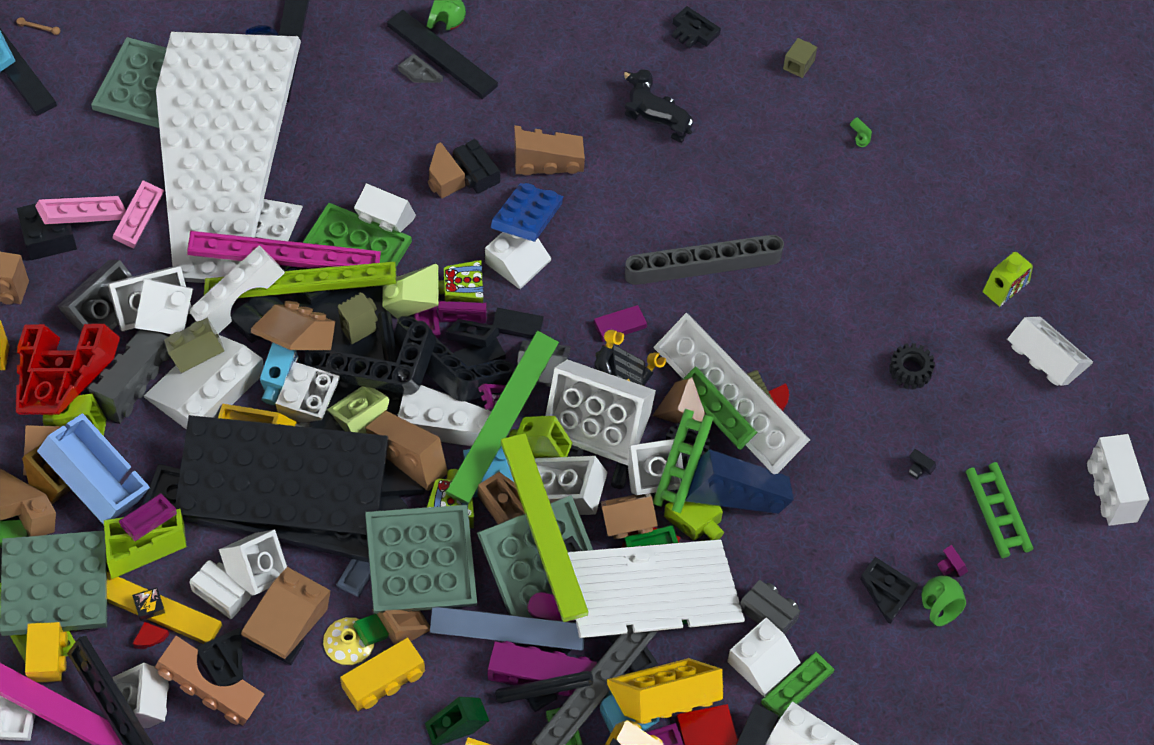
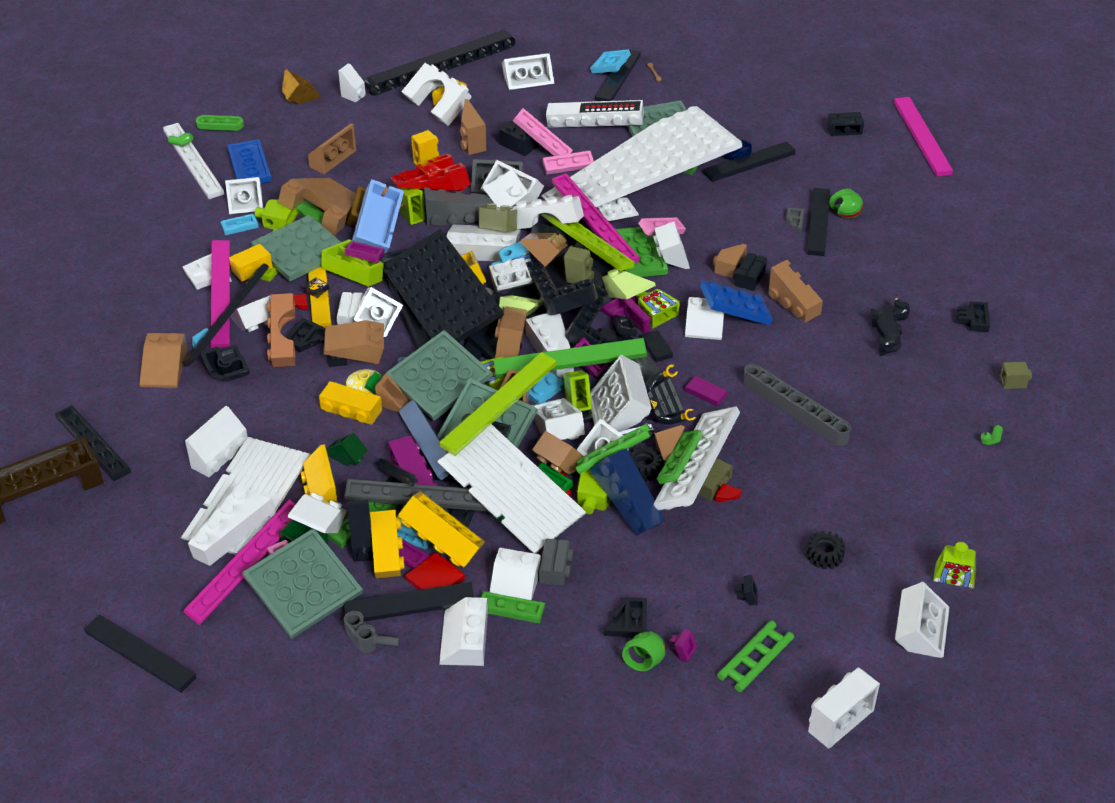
camera: 60 degrees right, 15 degrees down
(79, 134) = (595, 113): none -> white brick
(342, 197) = (649, 224): none -> bright pink plate

